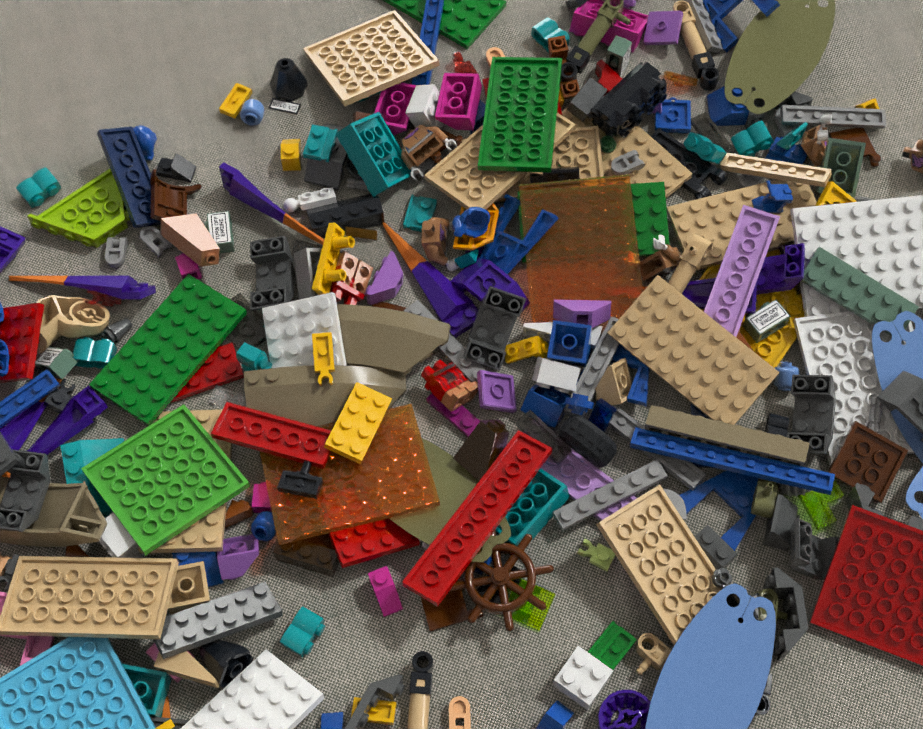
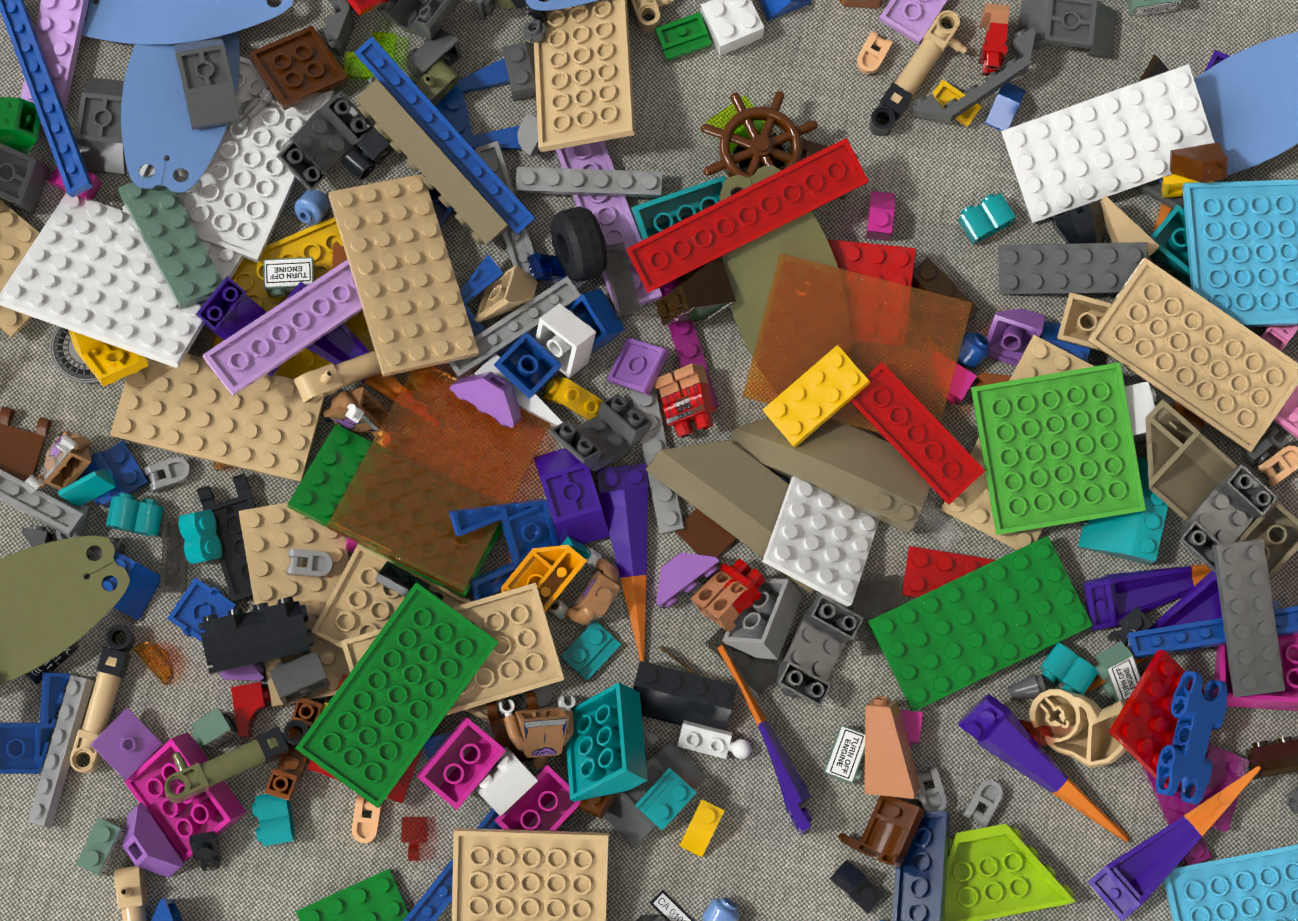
camera: 150 degrees left, 15 degrees up
(252, 358) = (890, 544): teal brick -> none
(300, 482) = (915, 355): black plate -> none
(323, 356) = (815, 490): yellow plate -> none
(328, 259) = (738, 626): yellow plate -> none
(471, 222) = (553, 570): blue hair -> none
(578, 403) = (564, 283): blue plate -> none
(600, 556) = (640, 137): yellowish green plate -> none
(607, 144) = (314, 604): clear green plate -> none
(776, 169) = (144, 449): tan plate -> none
(778, 197) = (178, 407): blue piece -> none
(845, 163) = (70, 406): sand green slope -> none

